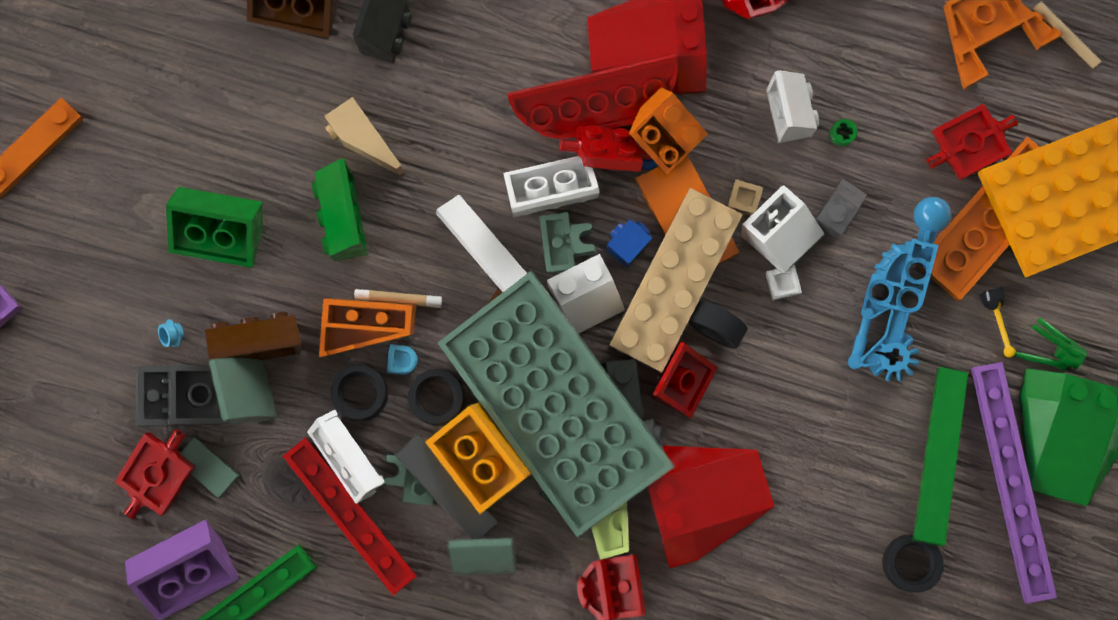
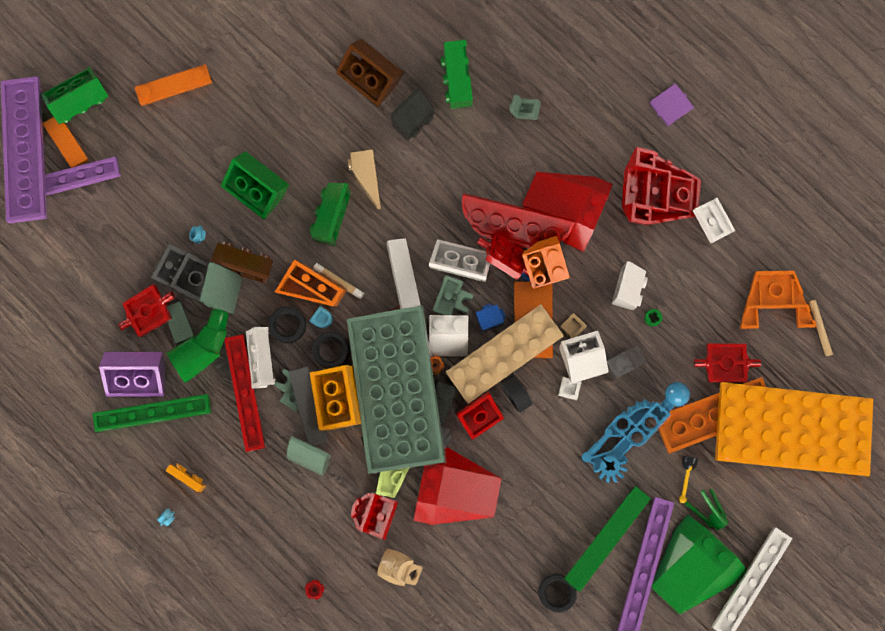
camera: 25 degrees right, 0 degrees up
(259, 488) = (200, 350): none -> green piece
(594, 340) = (439, 364): none -> orange plate

